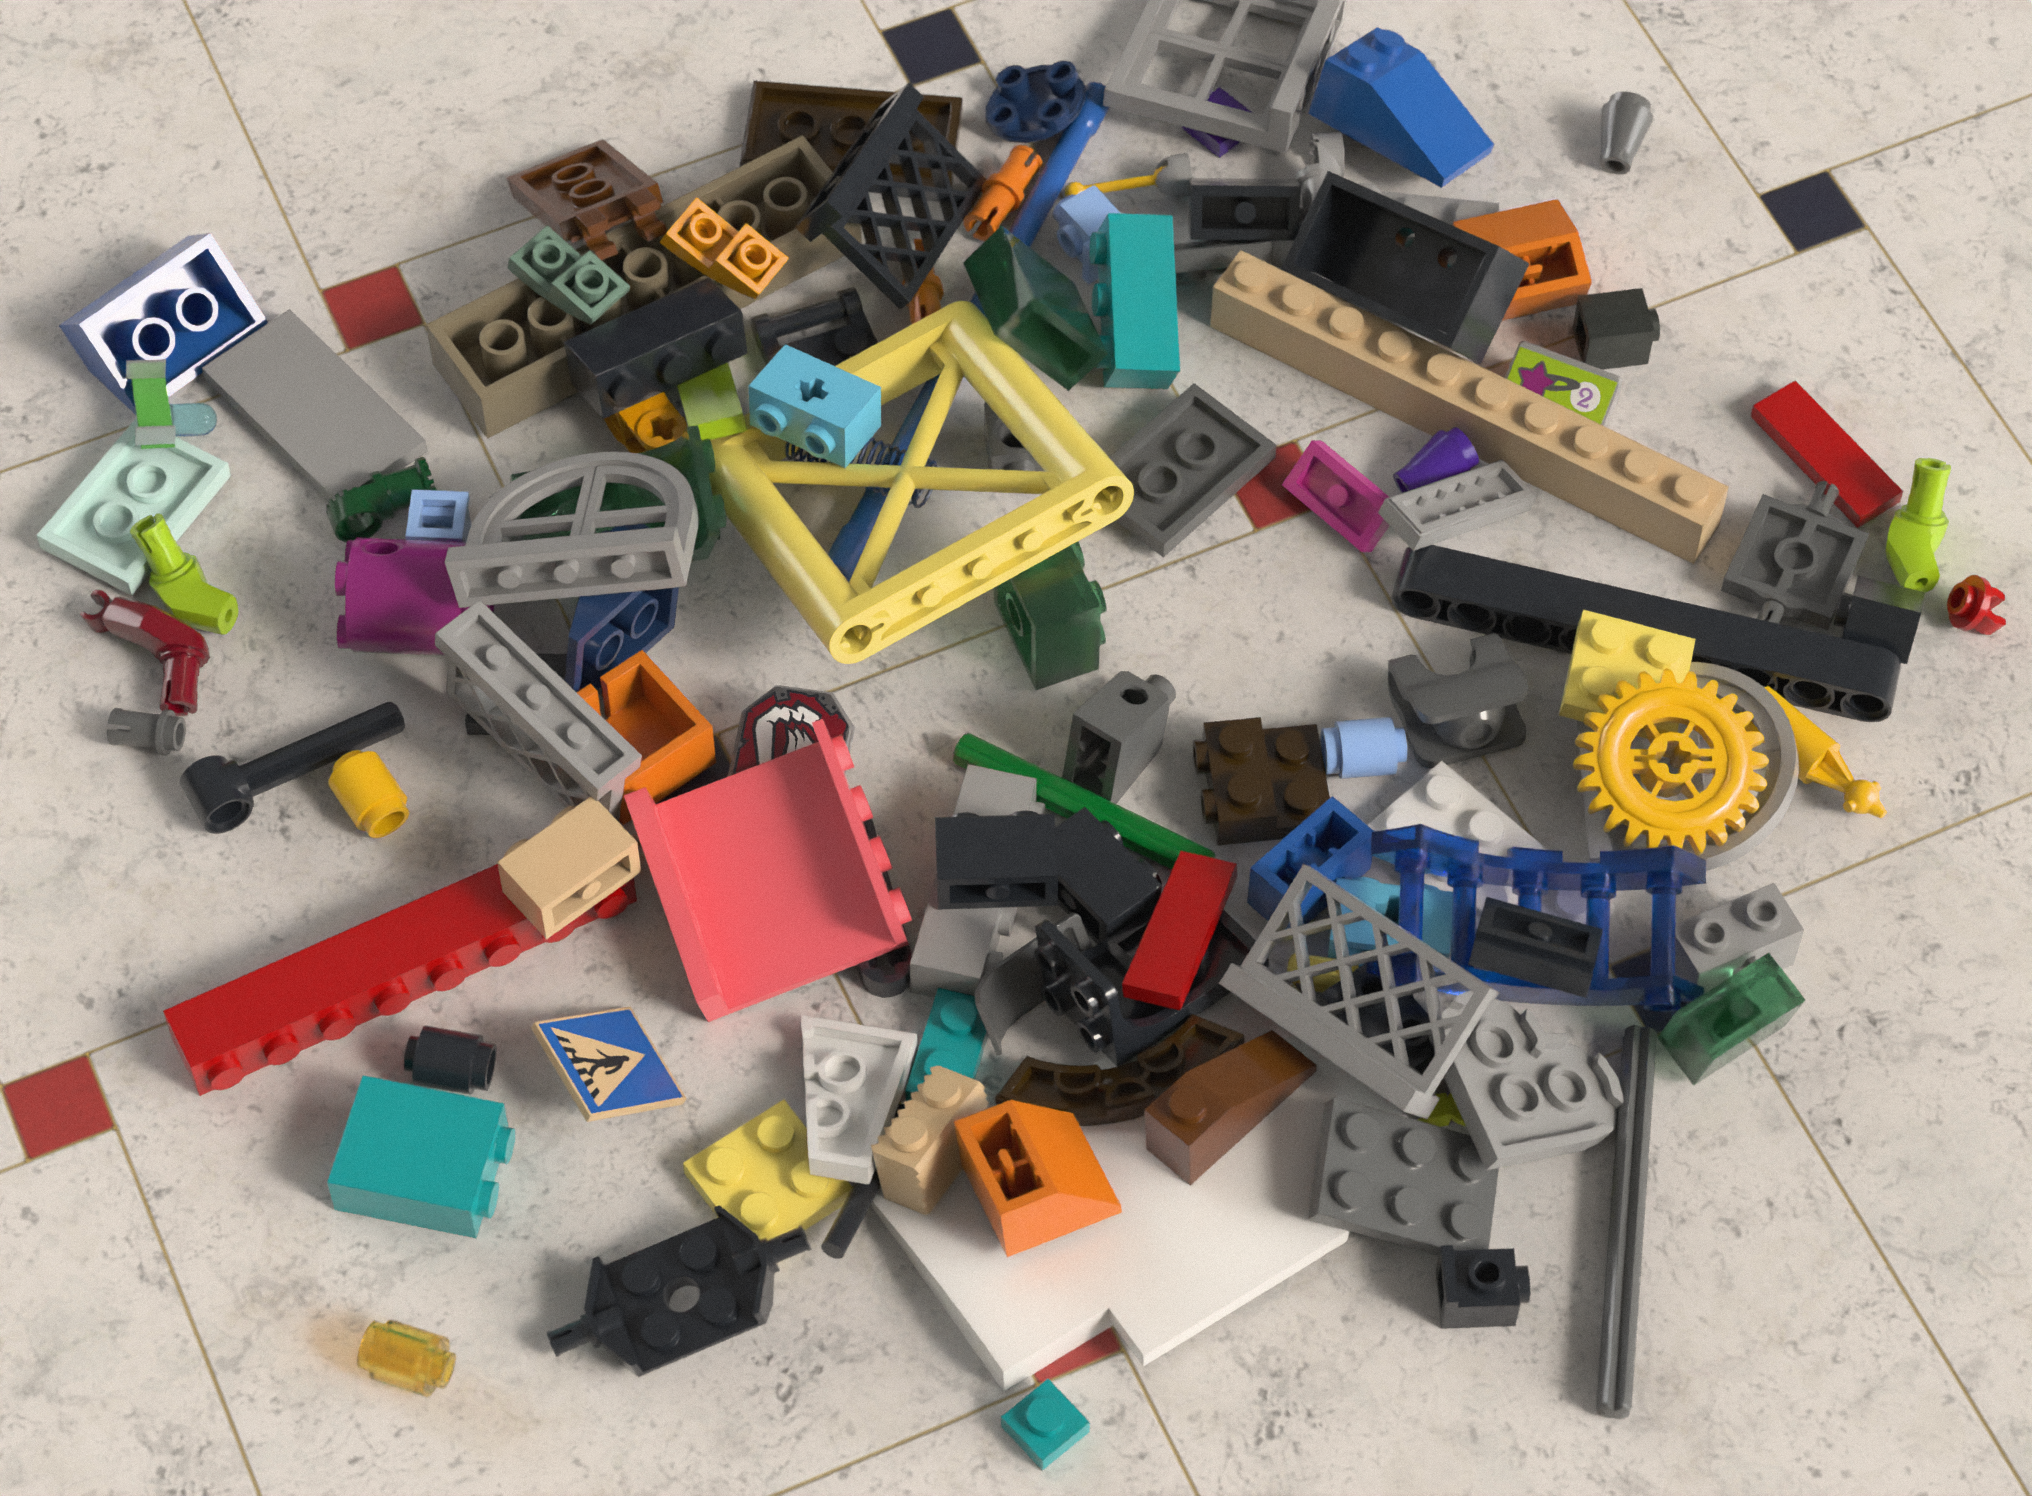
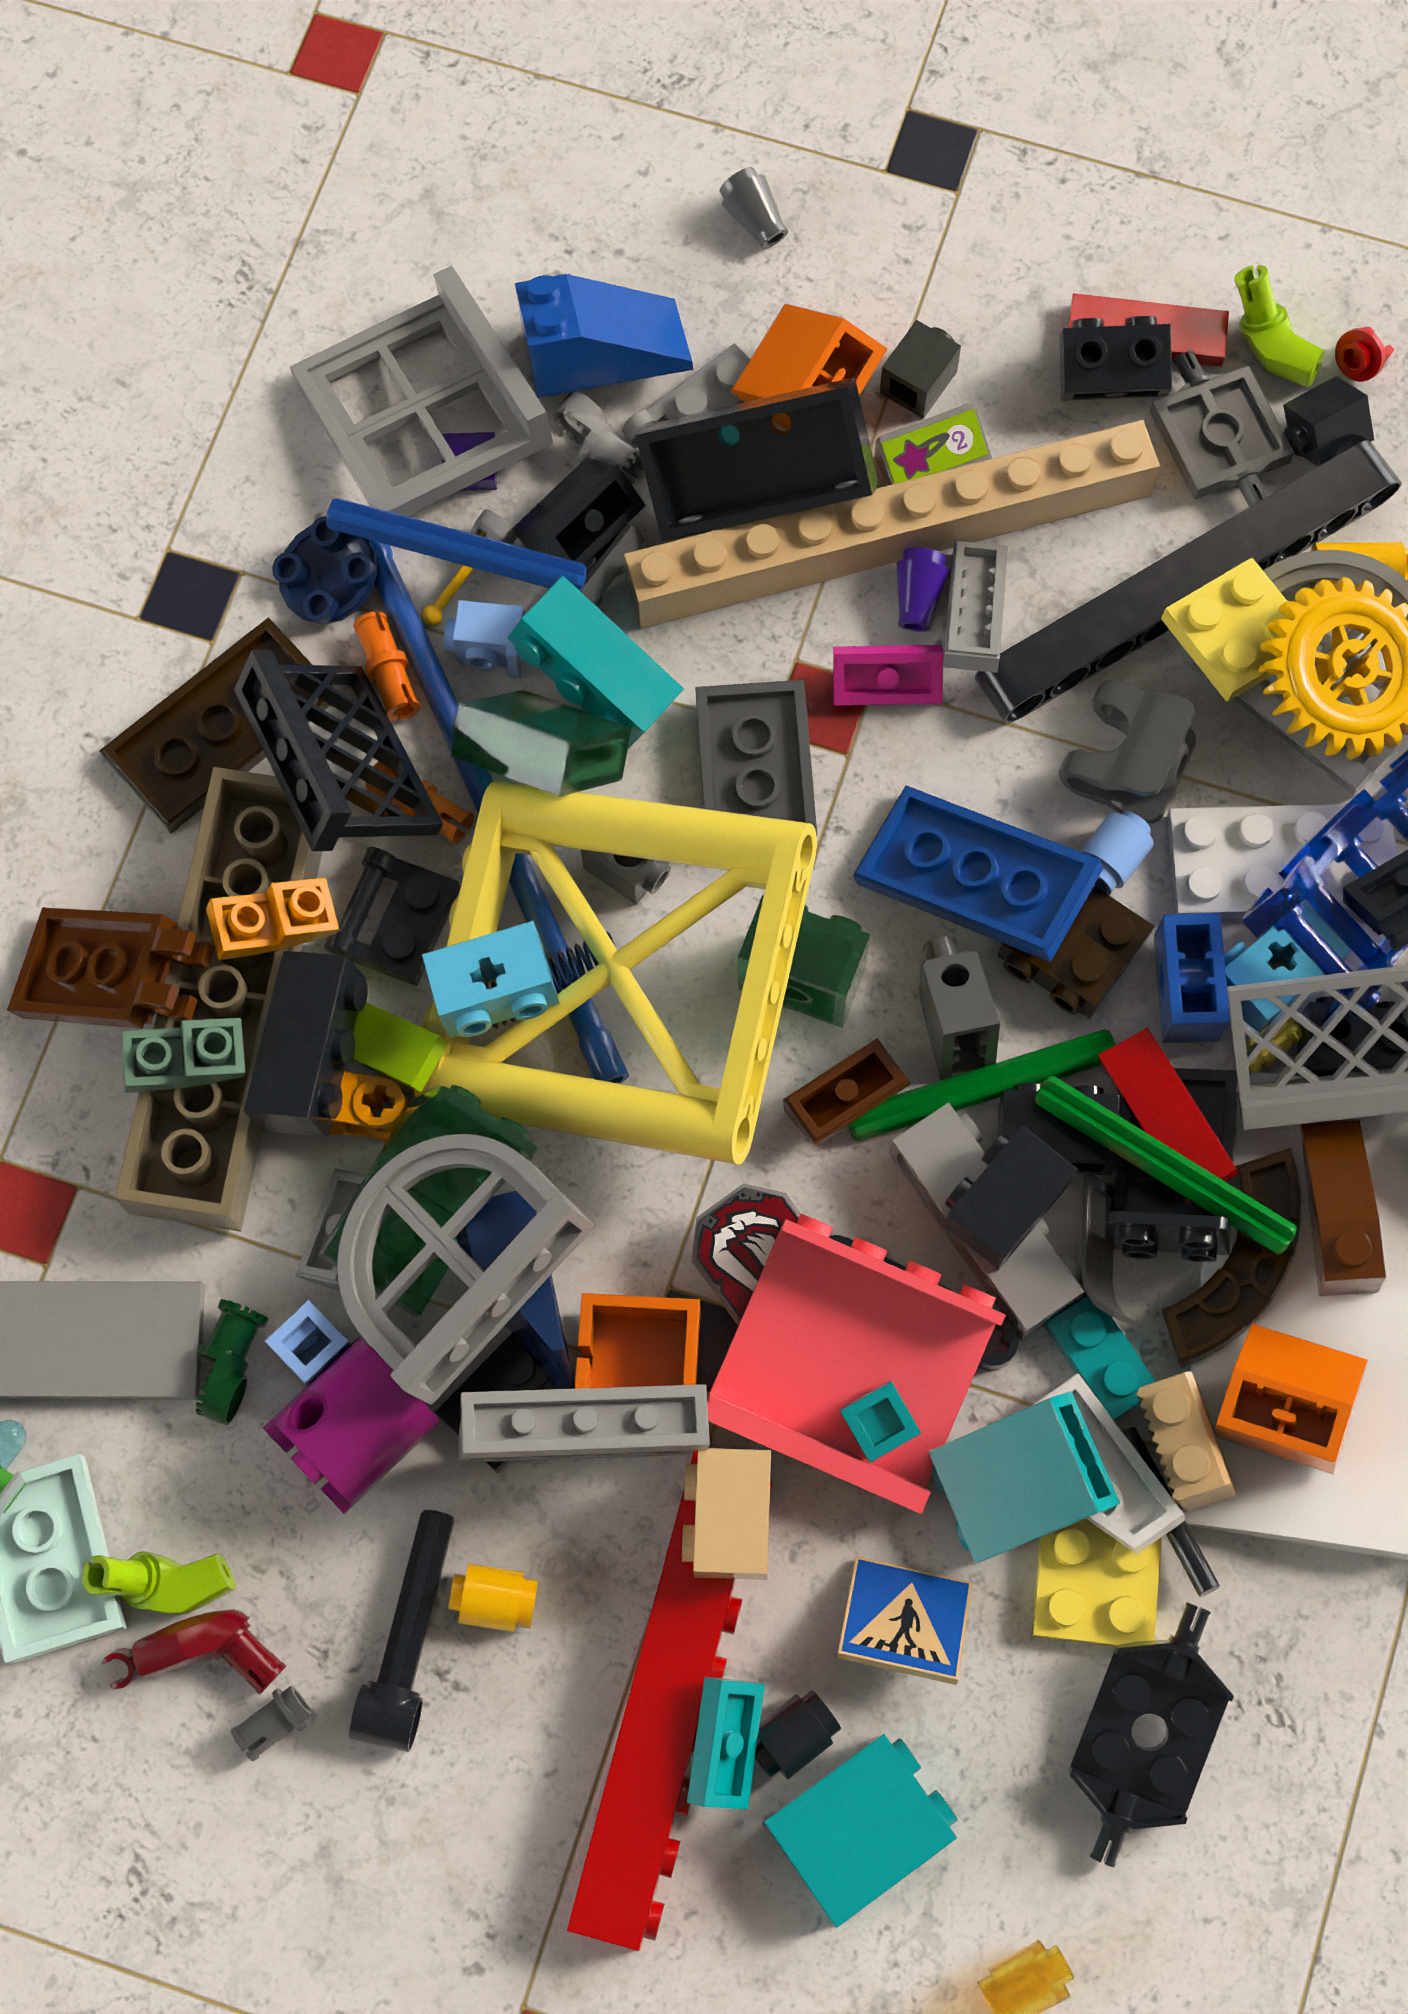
camera: 45 degrees left, 15 degrees up
(397, 1005) = (726, 1743): none -> teal plate
(741, 922) = (880, 1421): none -> teal plate
(791, 1044) = (1022, 1477): none -> teal brick
(979, 715) = (845, 1092): none -> reddish brown slope
(1130, 147) = (452, 545): none -> blue axle
(1130, 945) = (1165, 1164): none -> green axle
(1243, 666) = (978, 872): none -> blue tile
(1765, 441) = (1115, 359): none -> black brick

